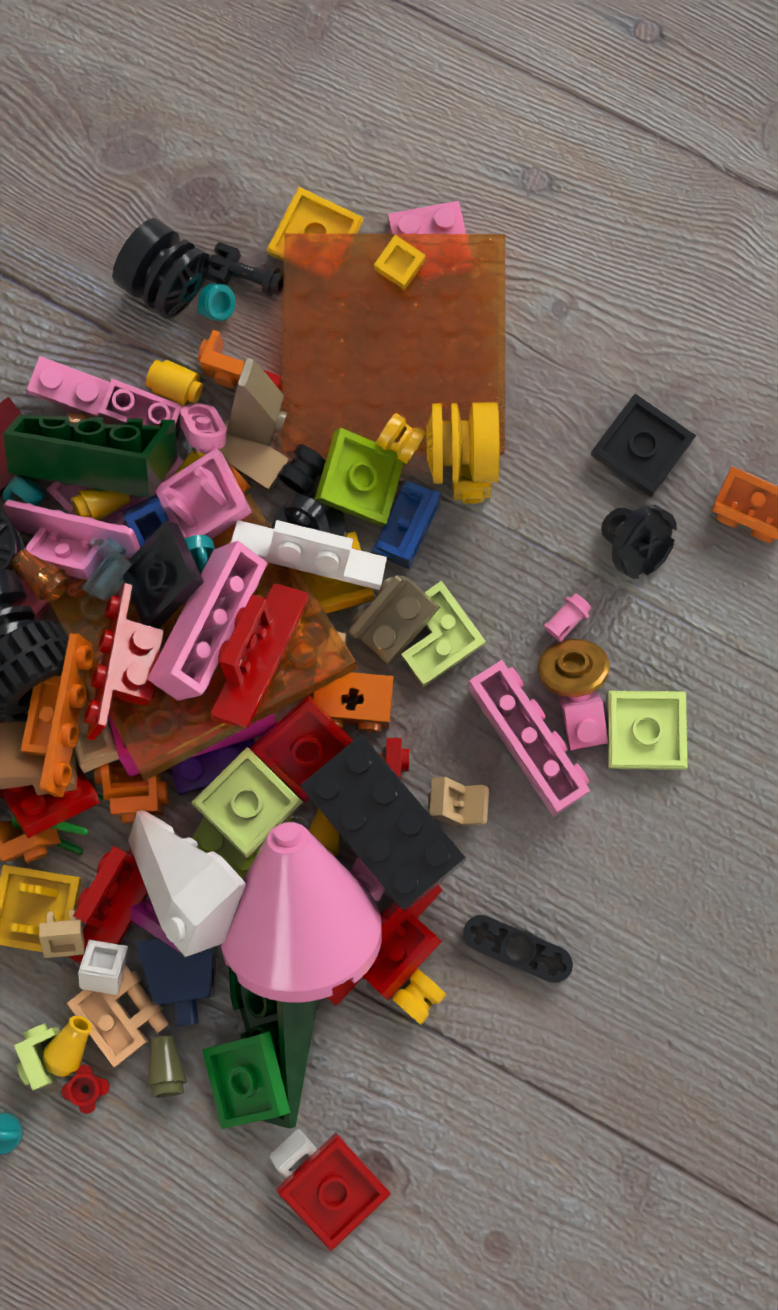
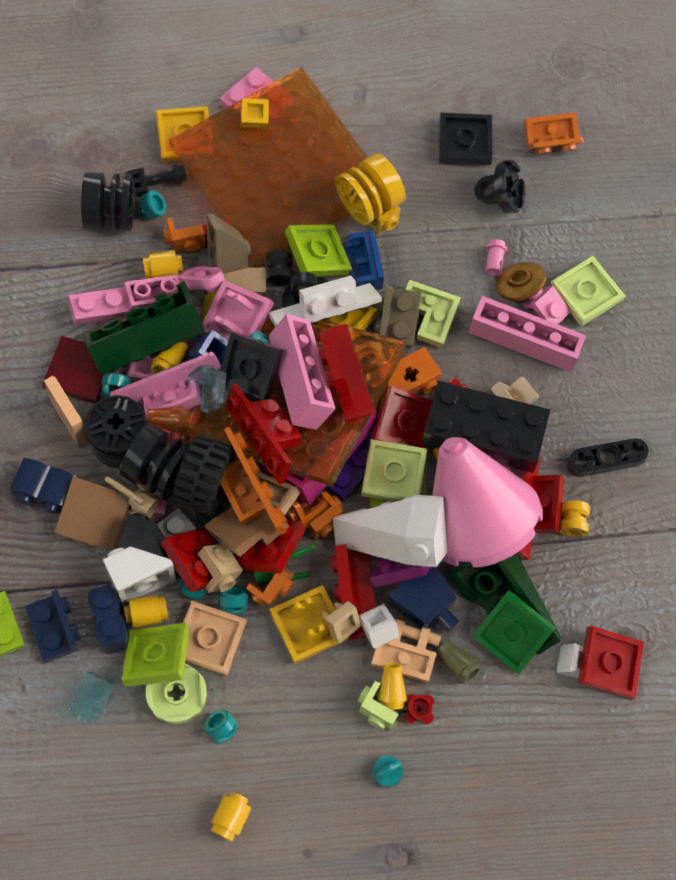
camera: 45 degrees left, 10 degrees down
(409, 442) = (328, 211): yellow wheel -> none

